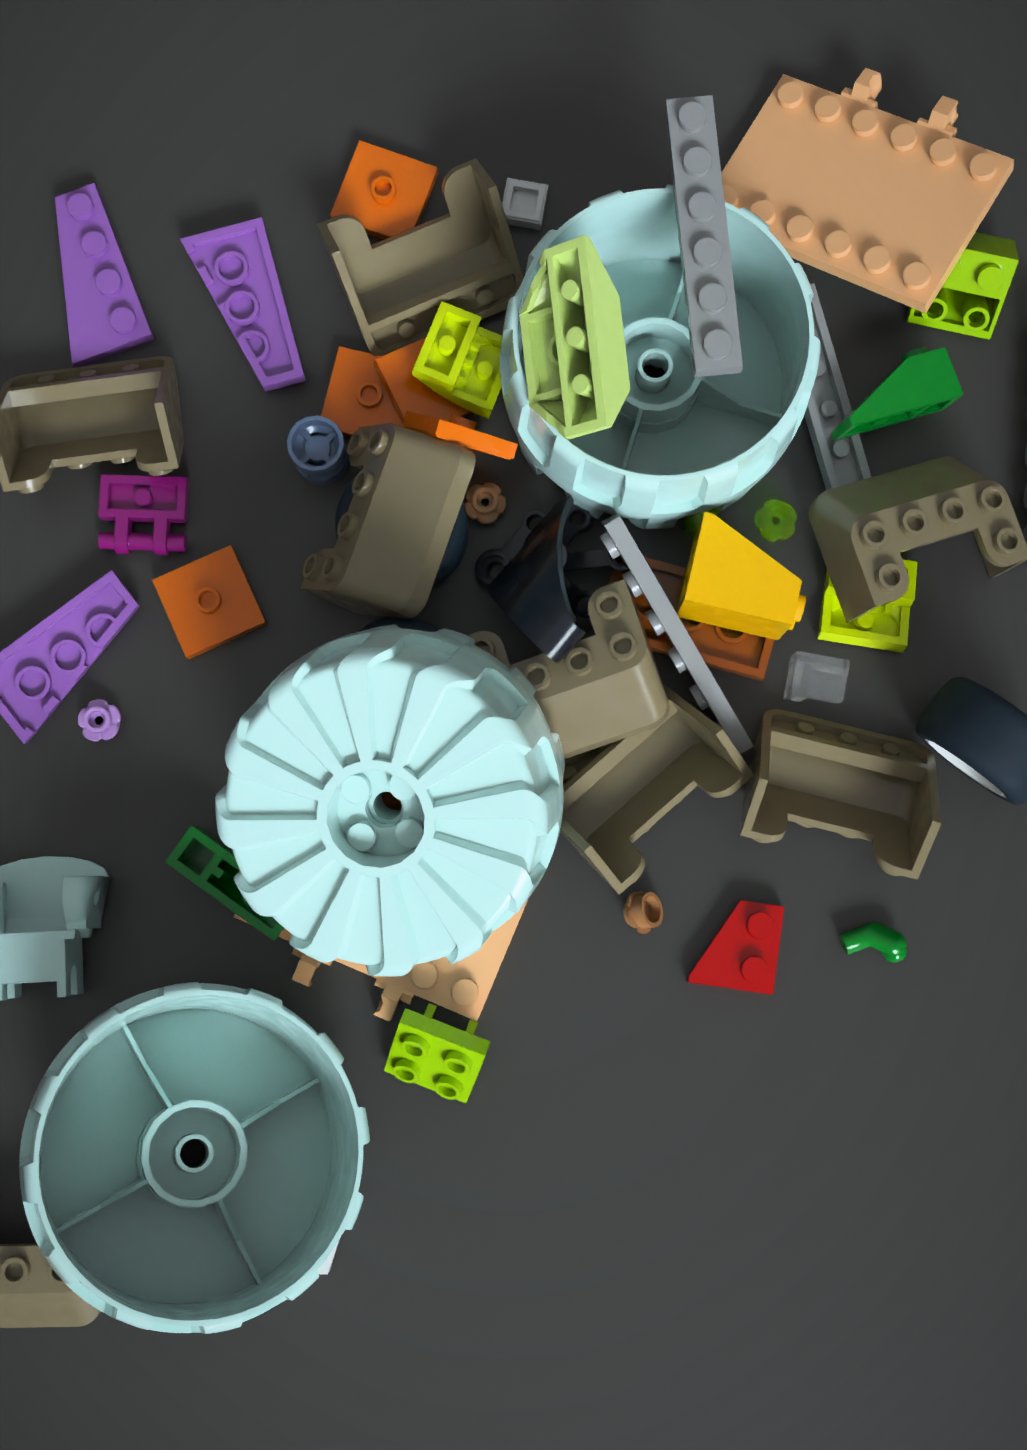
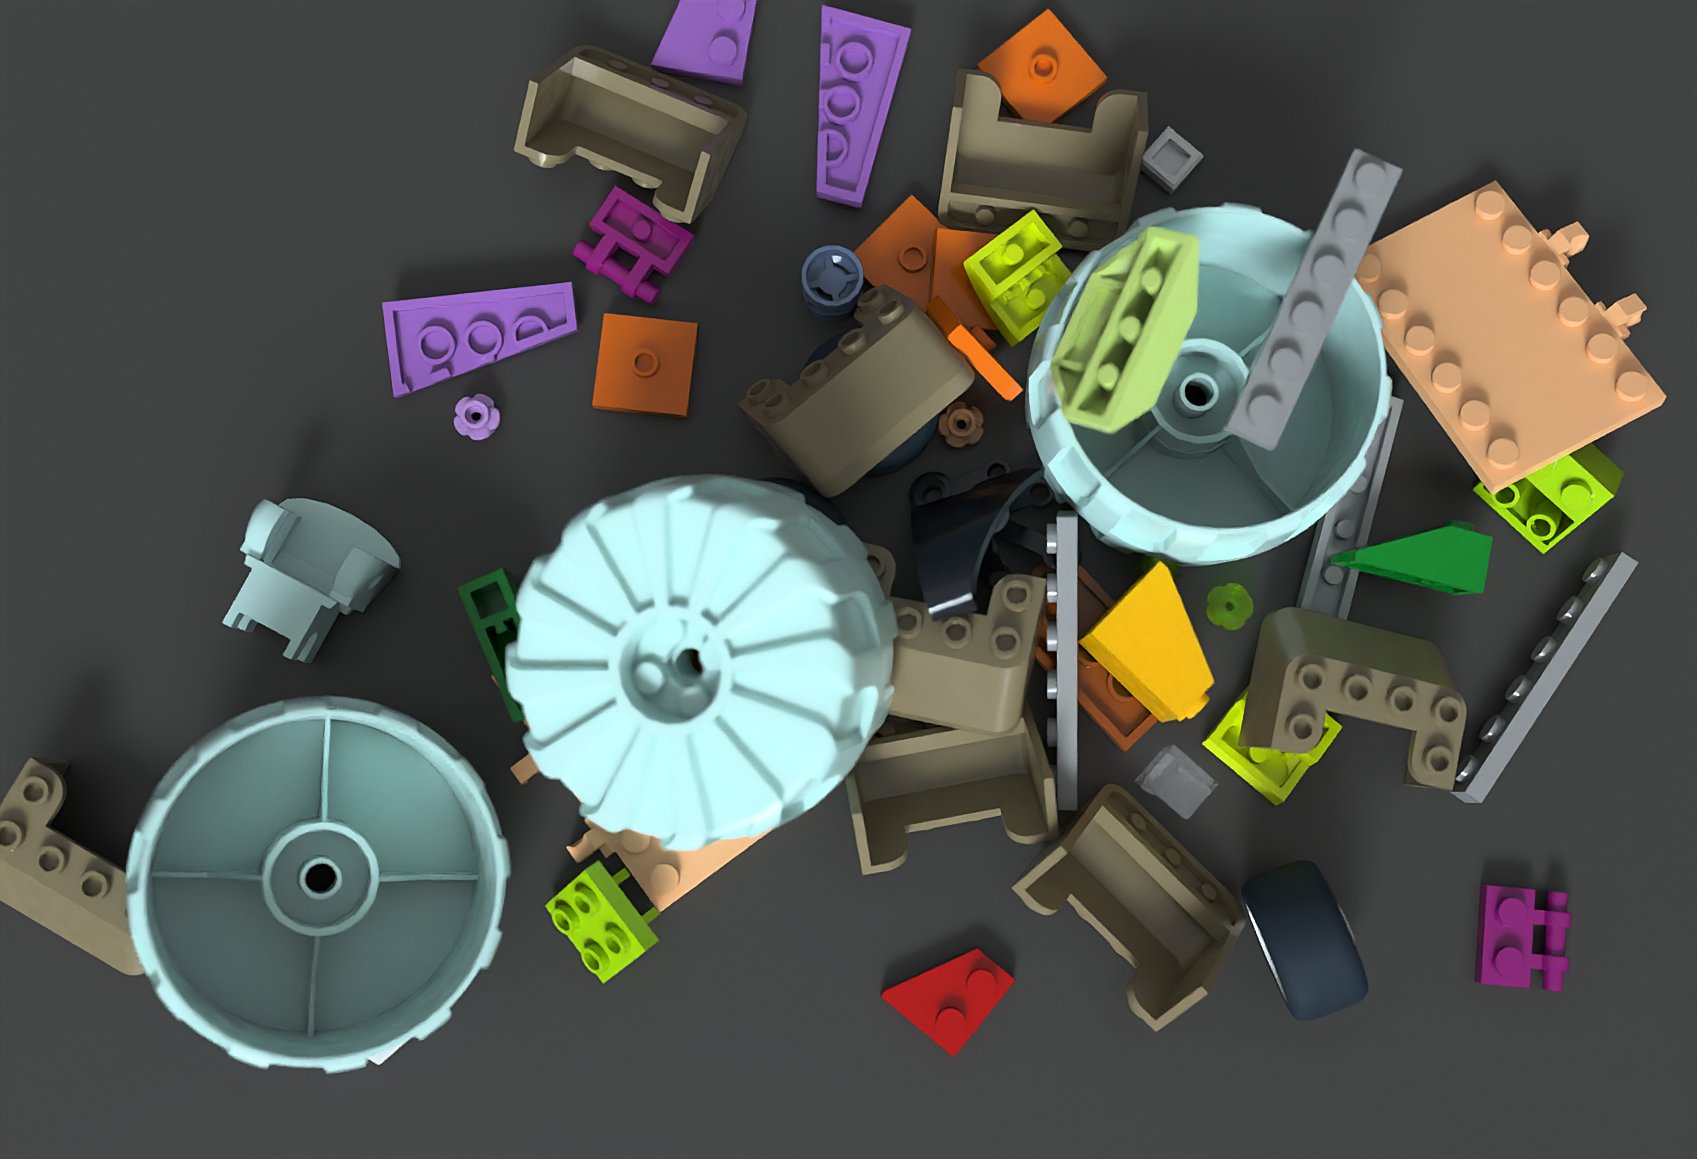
camera: 25 degrees right, 0 degrees up
(643, 911) = (878, 903): medium nougat plate -> none
(879, 937) = (1087, 1061): green arm -> none

